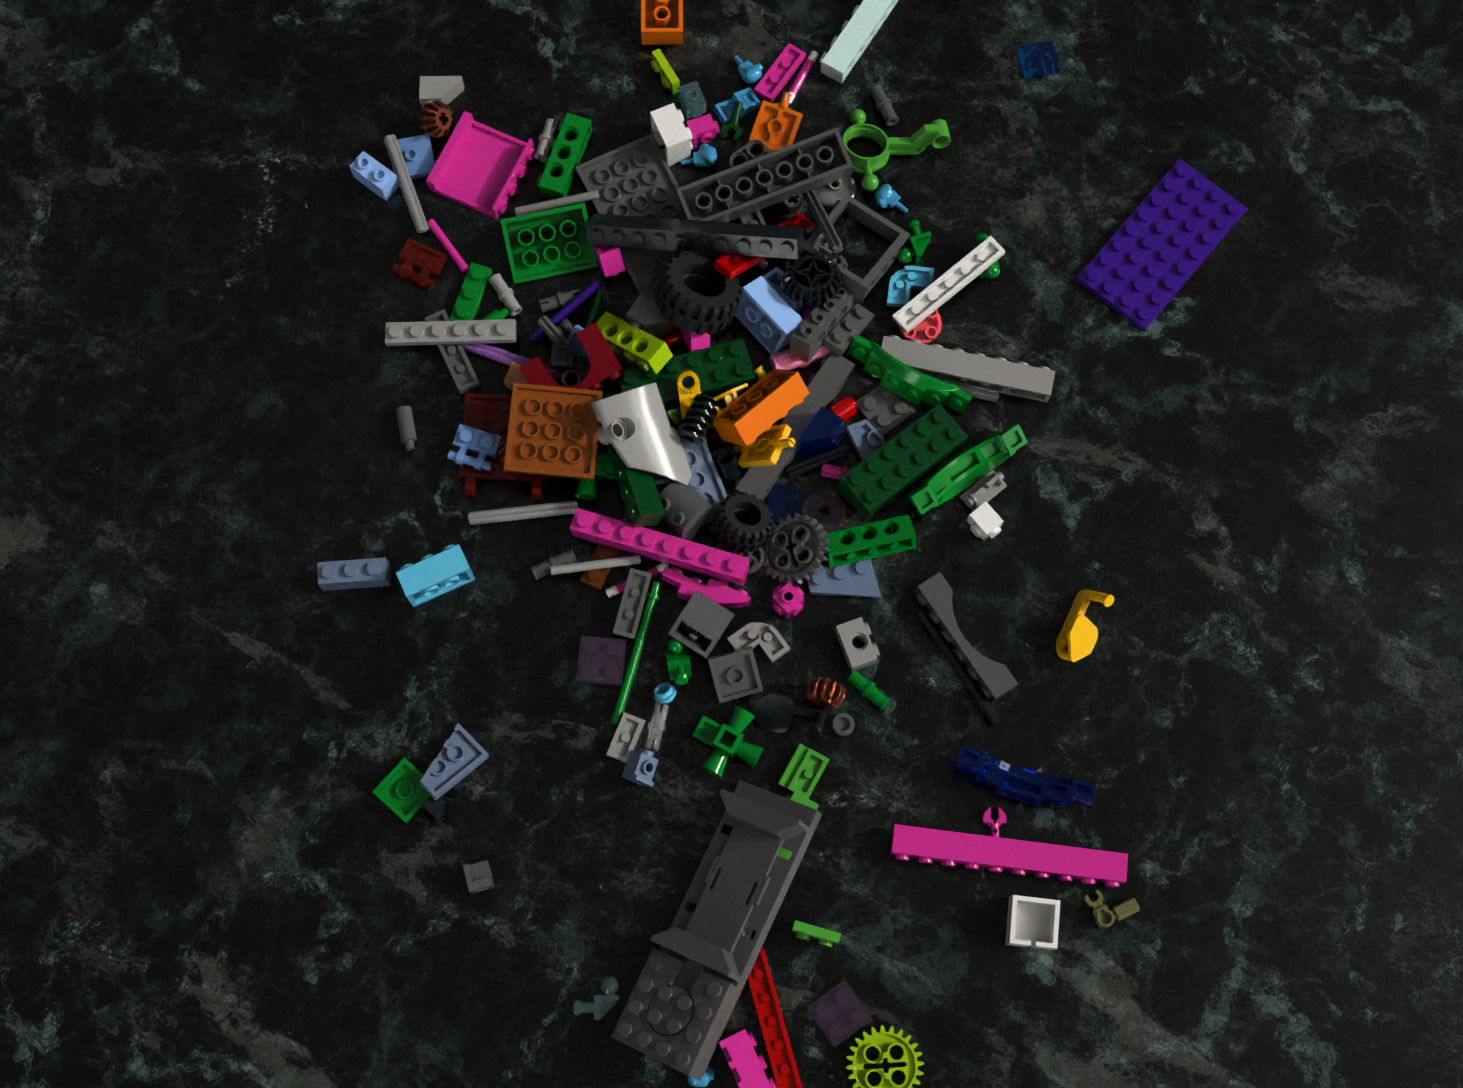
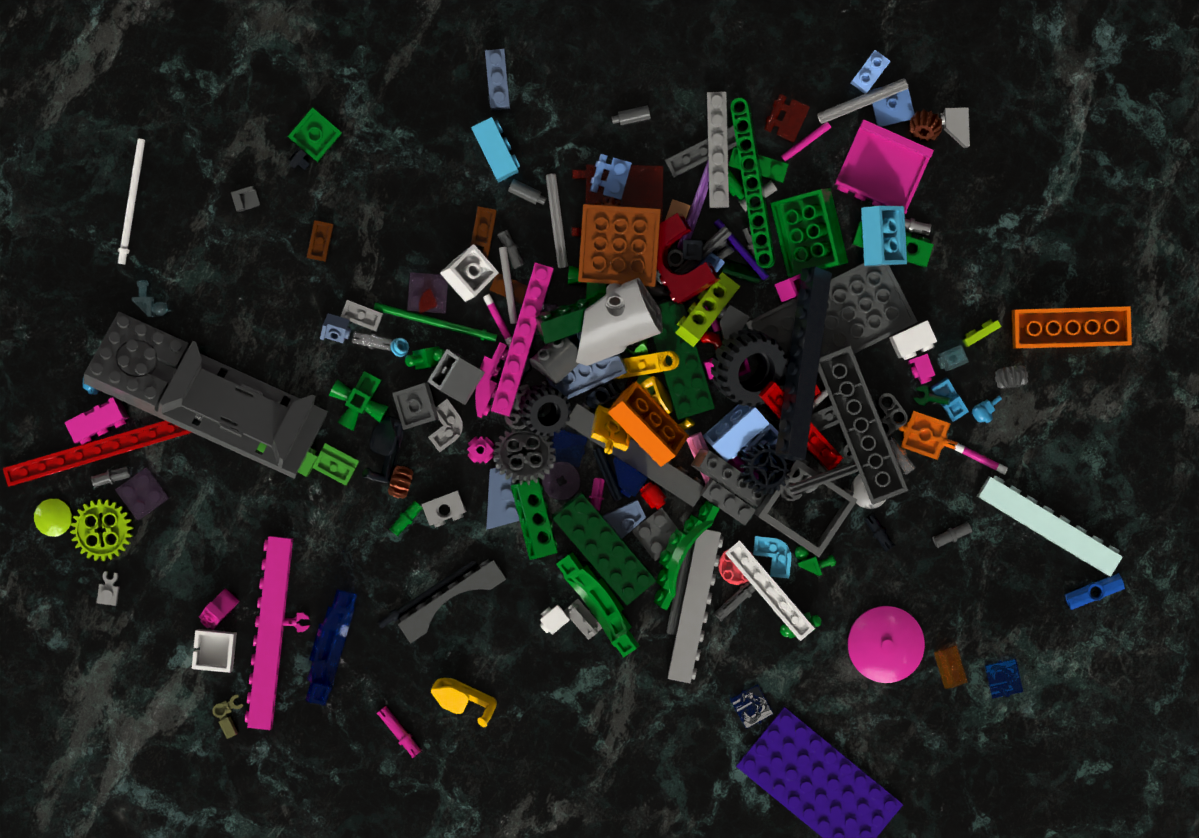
camera: 90 degrees right, 15 degrees up
(455, 761) = (337, 173): sand blue wing -> none
(480, 289) = (748, 174): none -> green beam
(488, 545) = (526, 192): none -> dark grey cylinder
(534, 595) = (484, 229): none -> reddish brown plate
(534, 786) = (320, 241): none -> reddish brown plate
(534, 1032) = (123, 250): none -> white bar
(555, 159) = (884, 235): none -> medium azure slope
(557, 202) = (847, 238): light grey bar -> none
(580, 609) = (469, 273): none -> white slope
(611, 658) = (427, 301): none -> clear red tile
(632, 603) = (476, 317): dark grey plate -> none
(698, 418) = (632, 370): black piece -> none
(704, 157) = (896, 371): dark azure piece -> none
(713, 40) = (1011, 377): none -> dark grey gear
(780, 73) = (983, 438): dark pink plate -> none
(817, 1053) = (110, 476): none -> dark grey axle
(825, 936) = (201, 481): bright green plate -> none
(842, 724) = (377, 497): dark grey tile -> none
(888, 197) = (859, 538): dark azure piece -> none
(933, 133) = (917, 581): bright green piece -> none
(962, 1059) = (108, 592): none -> light grey plate
(974, 340) = (734, 601): none -> dark grey pin
(981, 917) = (218, 609): none -> dark pink pin
(1004, 174) = (886, 644): none -> dark pink dish
(1027, 111) = (950, 667): none -> clear orange slope
(1077, 313) = (751, 706): none -> piece
(1129, 696) = (400, 733): none -> dark pink pin

